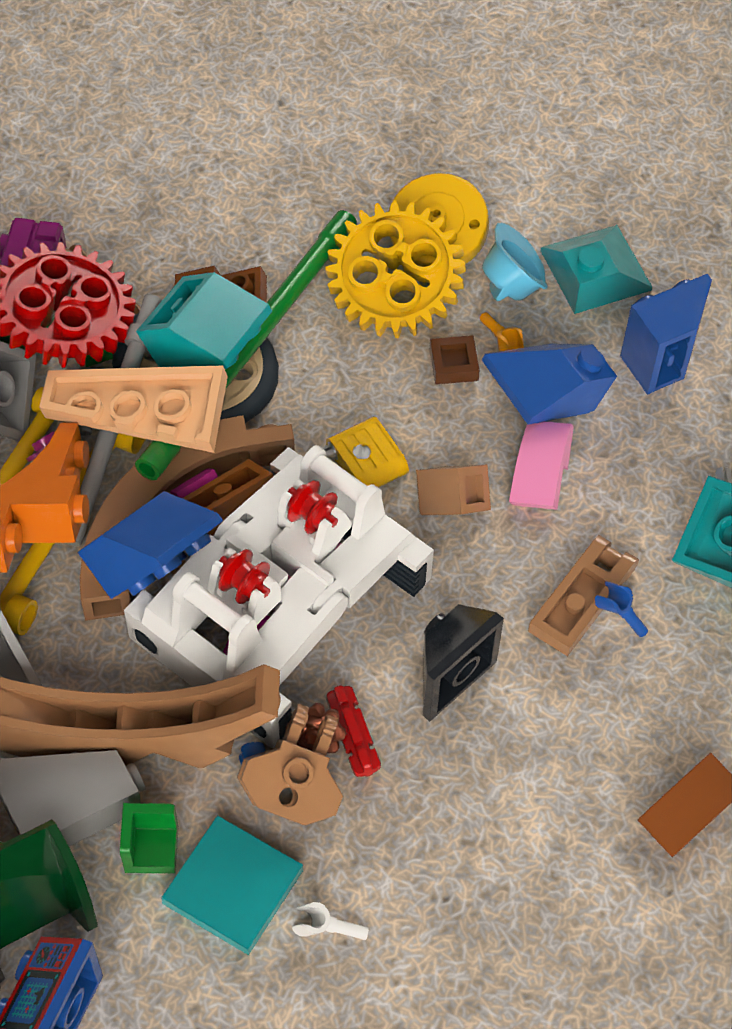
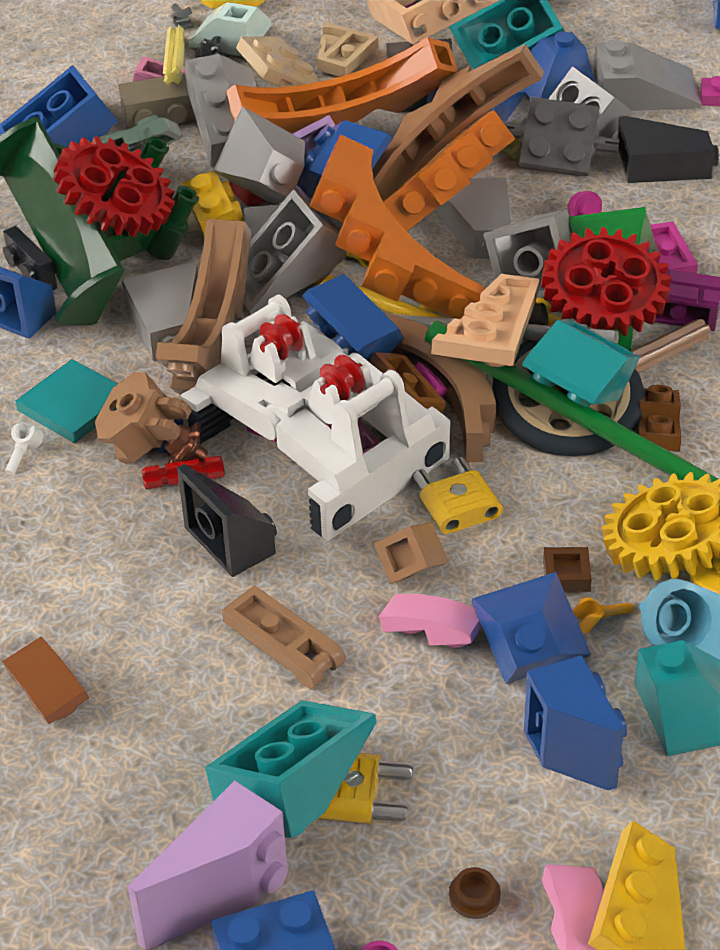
camera: 100 degrees right, 15 degrees down
(149, 838) = (119, 348): green panel -> none
(620, 602) = (254, 643): blue hand -> none

